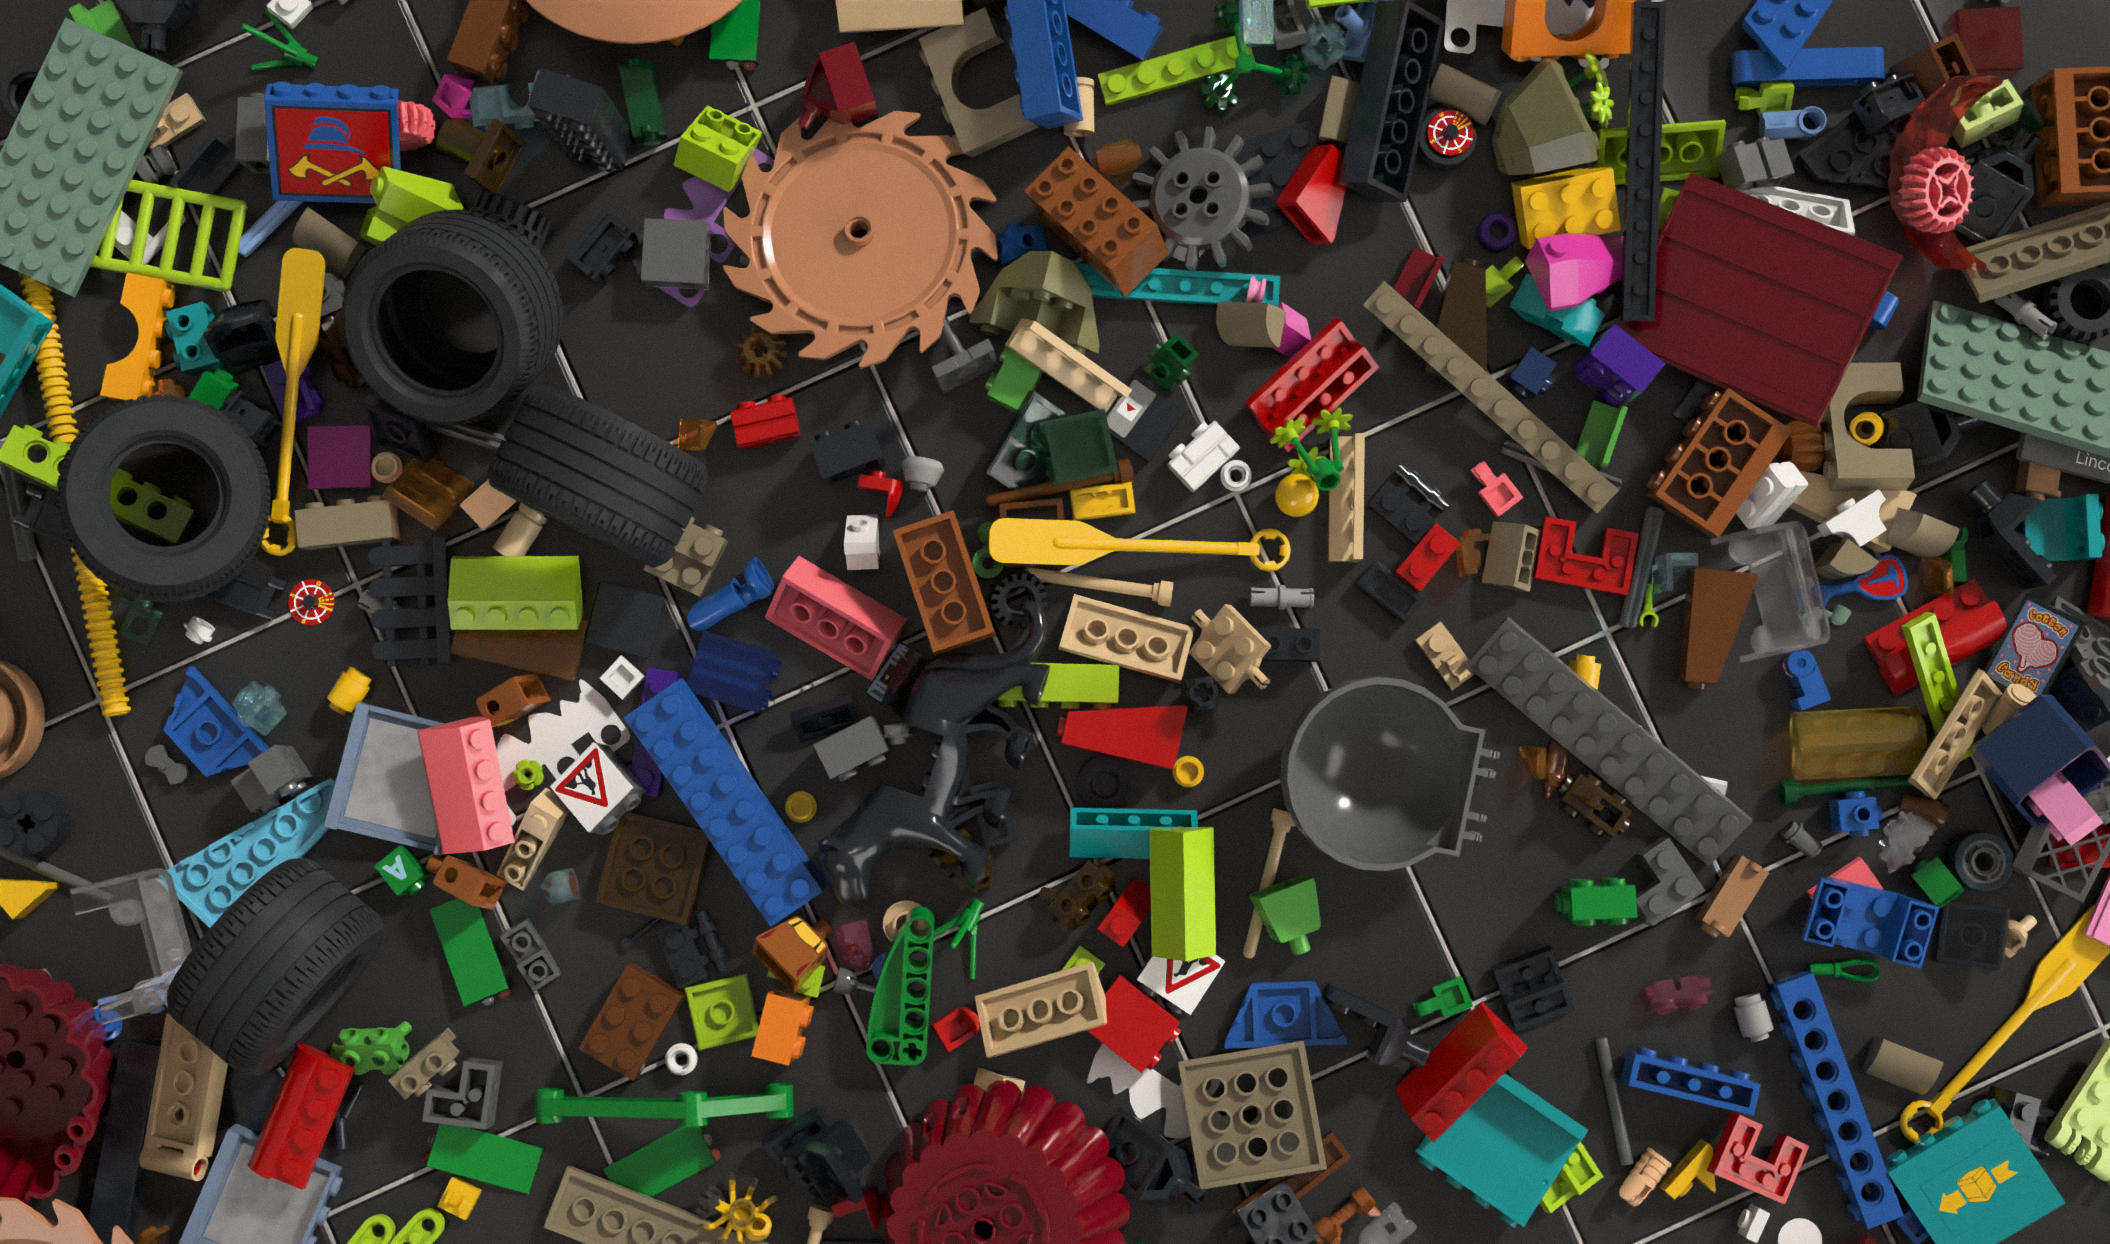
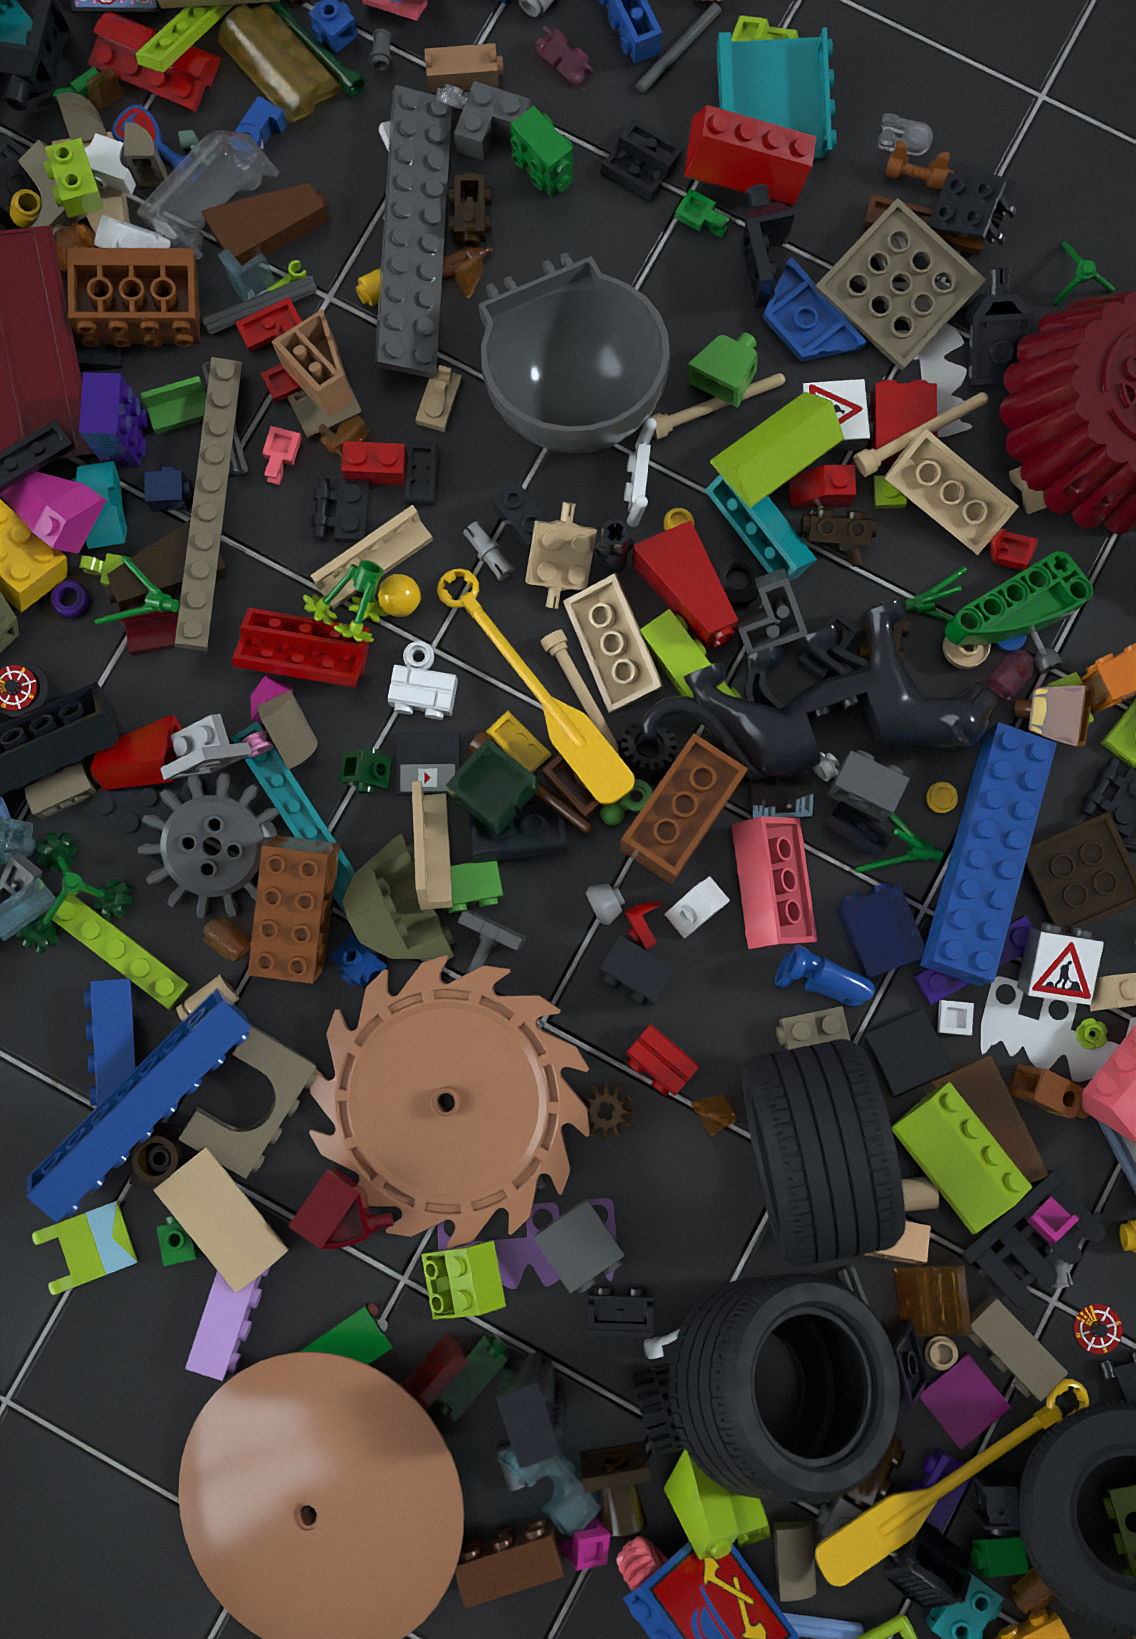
camera: 125 degrees left, 5 degrees down
(415, 622) = (1052, 1221): none -> dark pink panel
(557, 254) = (653, 1347): none -> white hand
(665, 77) = (436, 1371): none -> clear red plate
(775, 753) = (916, 850): none -> green plant
(1044, 783) = (777, 621): none -> dark grey brick
(1116, 964) = (869, 460): none -> tan piece
(1261, 774) = (638, 466): none -> white plate
(1281, 241) = (203, 749): none -> light grey bracket
(1434, 291) = (154, 600): none -> green plant
(1543, 568) = (314, 363): none -> medium nougat wedge
(1706, 864) = (452, 96): none -> clear plate
(1851, 478) = (73, 176): none -> lime brick

